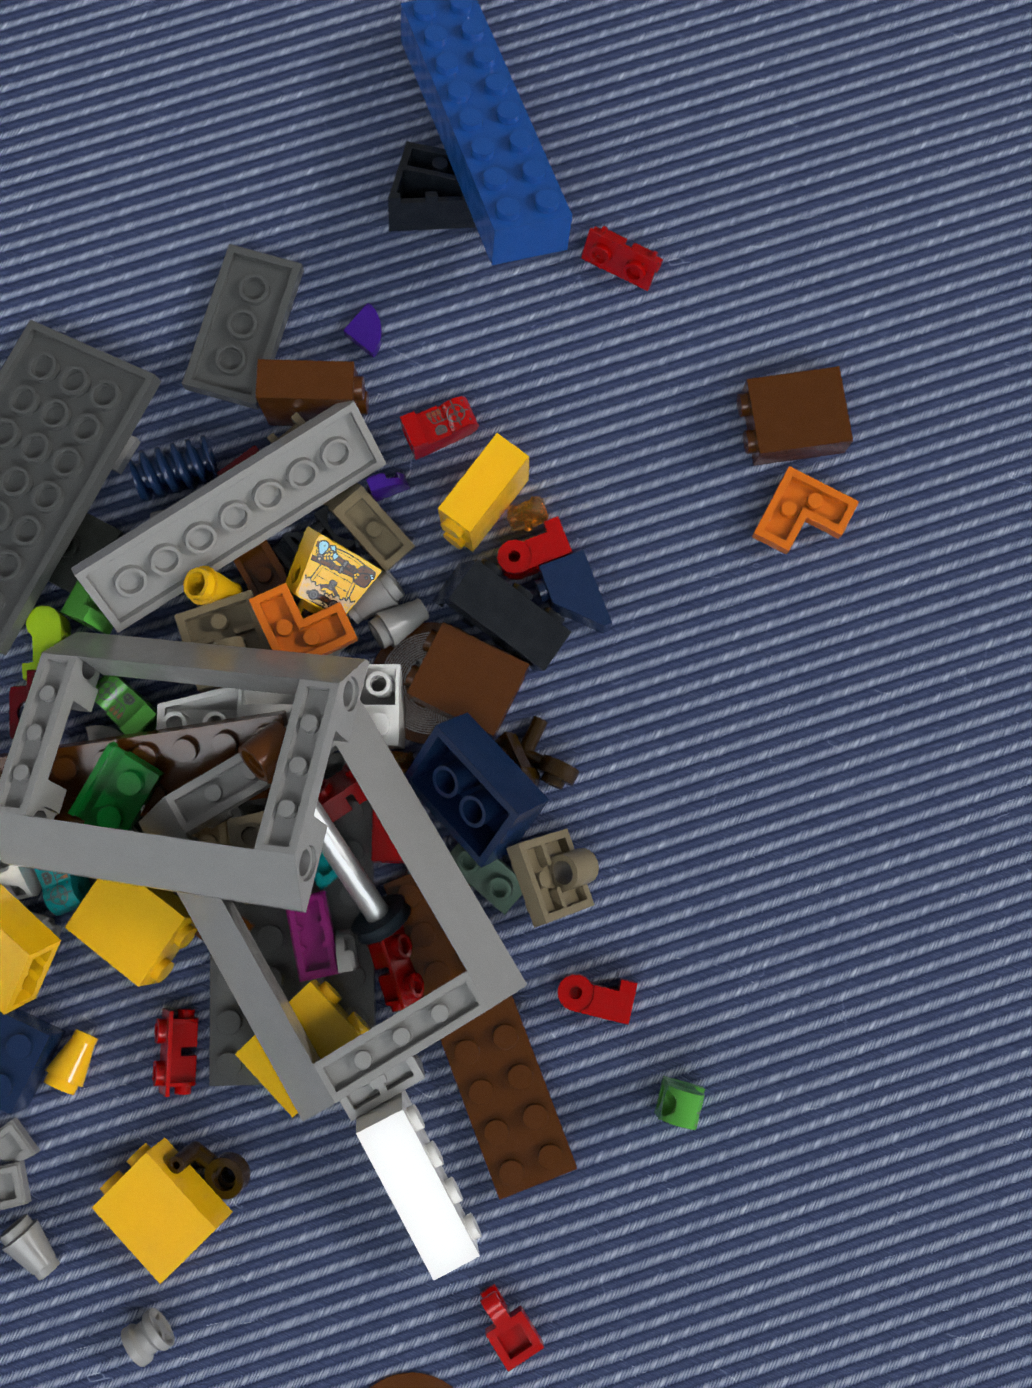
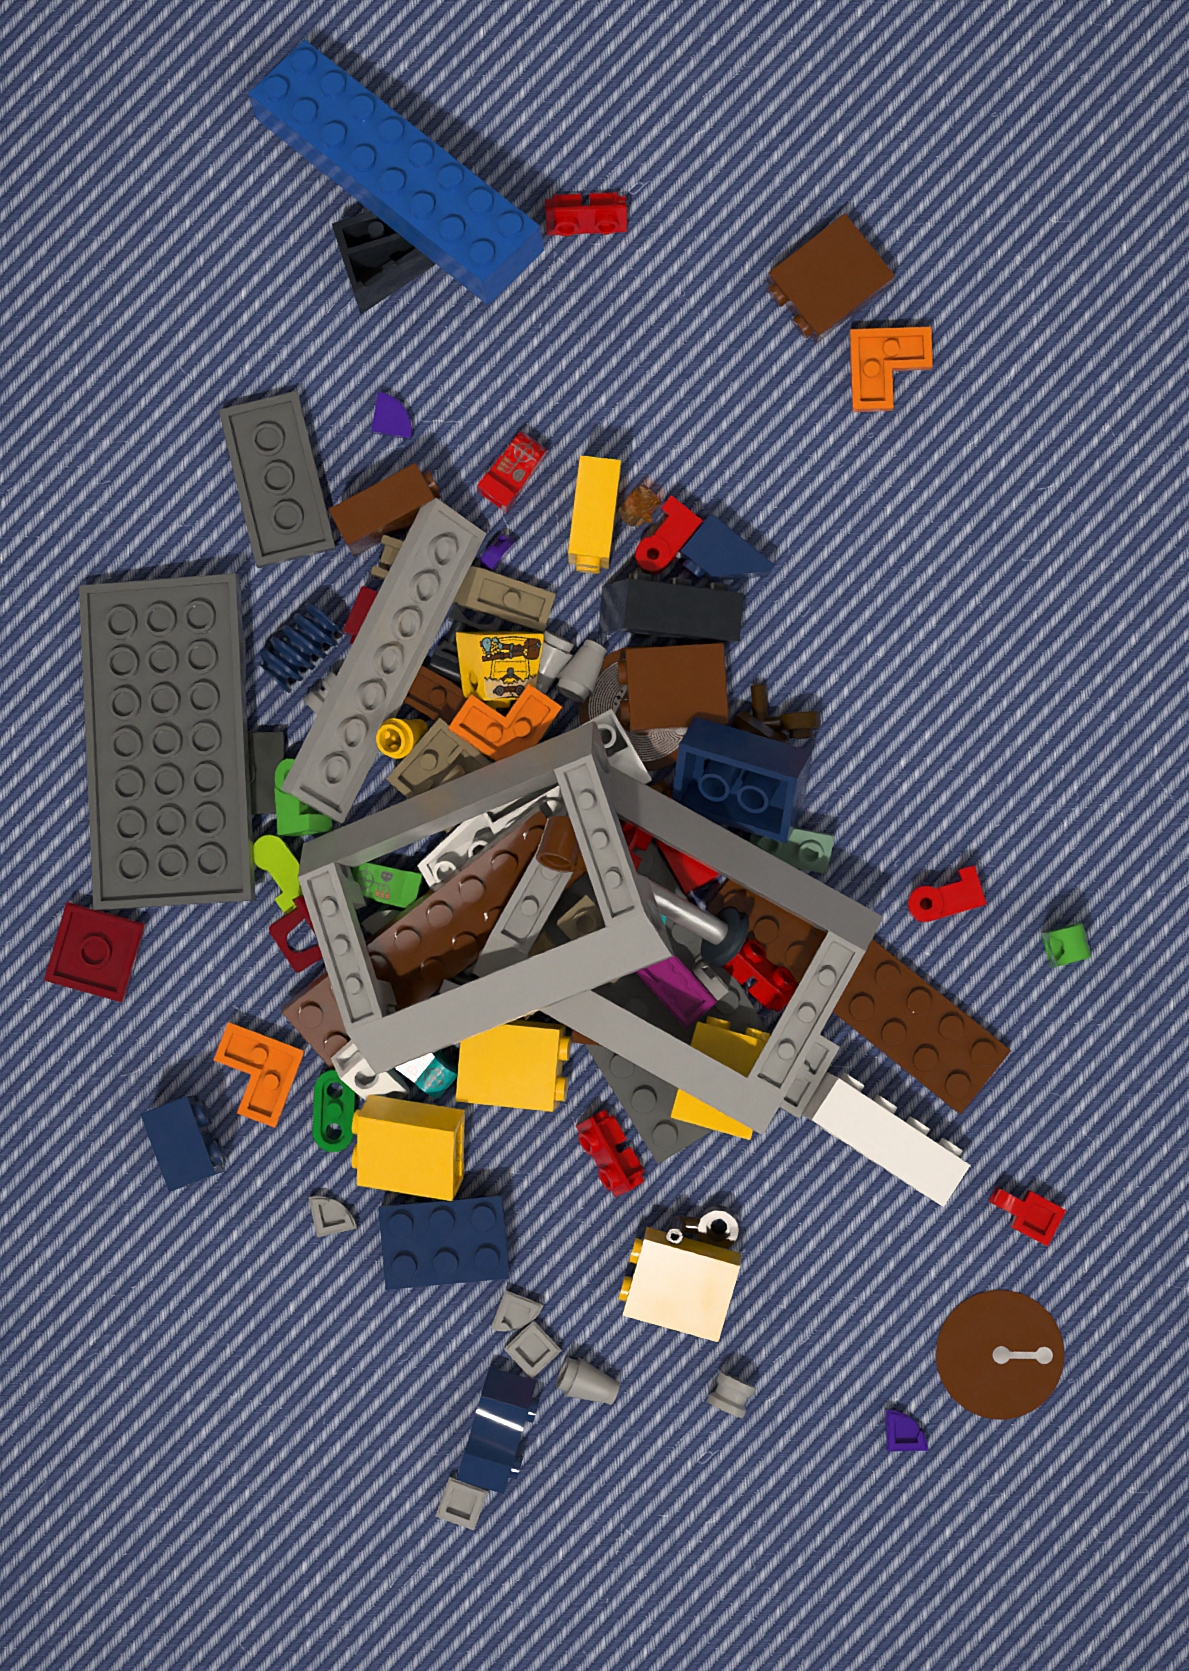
camera: 30 degrees left, 5 degrees up
(71, 1064) = (528, 1214): yellow cone -> none
(116, 790) = (433, 957): green plate -> none
(553, 876) = (846, 820): dark tan plate -> none

